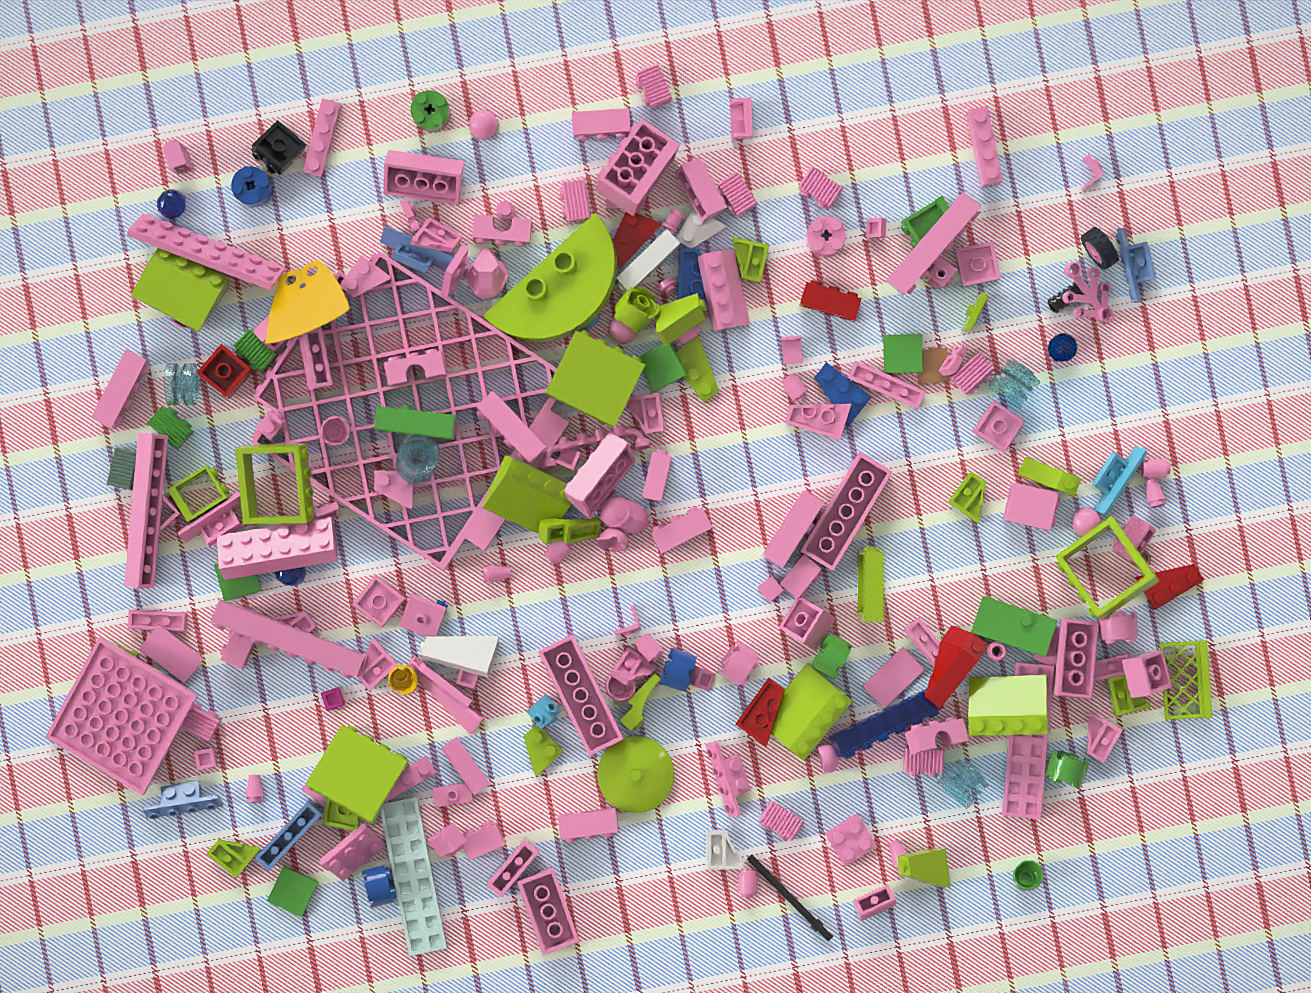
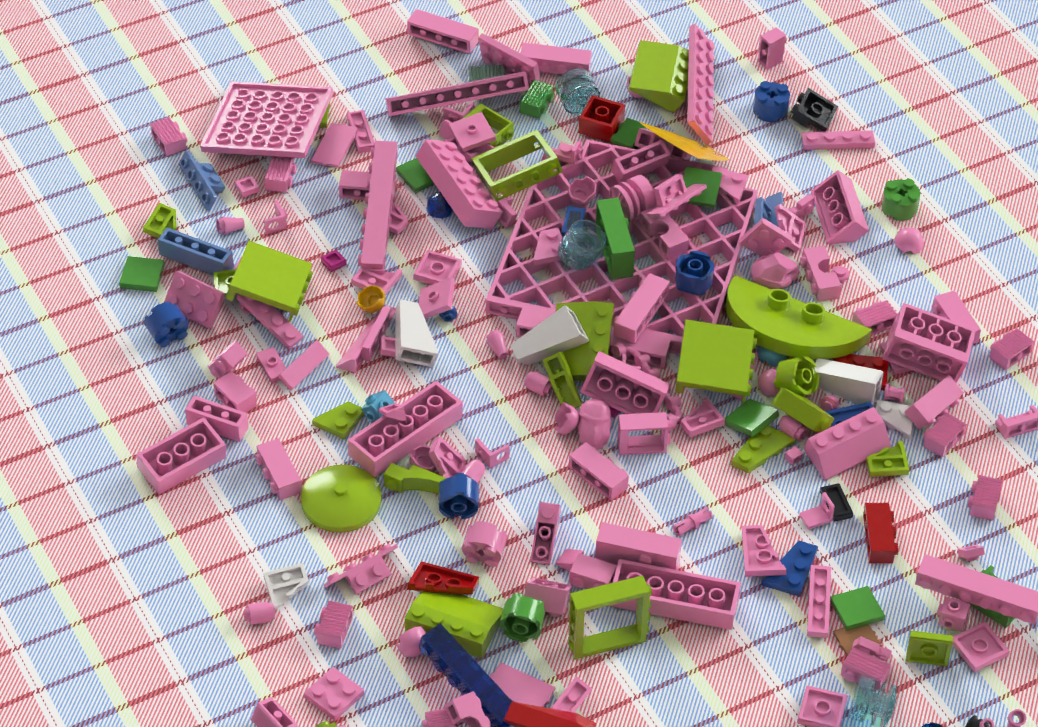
camera: 70 degrees right, 40 degrees down
(39, 493) = (442, 31): none -> bright pink brick
(107, 445) = (513, 61): none -> bright pink plate
(108, 821) = (168, 136): none -> bright pink brick
(171, 203) = (730, 59): clear blue hair -> none
(210, 512) = (472, 132): none -> bright pink plate
(258, 734) = (281, 216): none -> bright pink bracket
(365, 310) = (699, 176): none -> bright green tile
(367, 386) = (634, 196): none -> bright pink wheel
(370, 452) = (572, 214): none -> blue tile
(383, 346) = (672, 194): none -> bright pink bracket
(413, 876) = (181, 352): light aqua plate -> none
(471, 361) = (694, 273): none -> blue brick
(520, 525) = (553, 335): none -> white slope
(570, 705) = (393, 411): none -> bright pink slope
(702, 678) = (456, 527): bright pink slope -> none
(715, 342) = (793, 455): none -> bright pink piece
(737, 602) = (545, 532): none -> bright pink slope
(763, 464) = (692, 521): none -> bright pink pin
(779, 324) = (842, 508): none -> black tile
(794, 387) = (780, 525): bright pink brick -> none
(815, 923) = (235, 683): black bar -> none
(833, 228) = (941, 511): bright pink brick -> none
(969, 496) = (737, 702): lime wing -> none

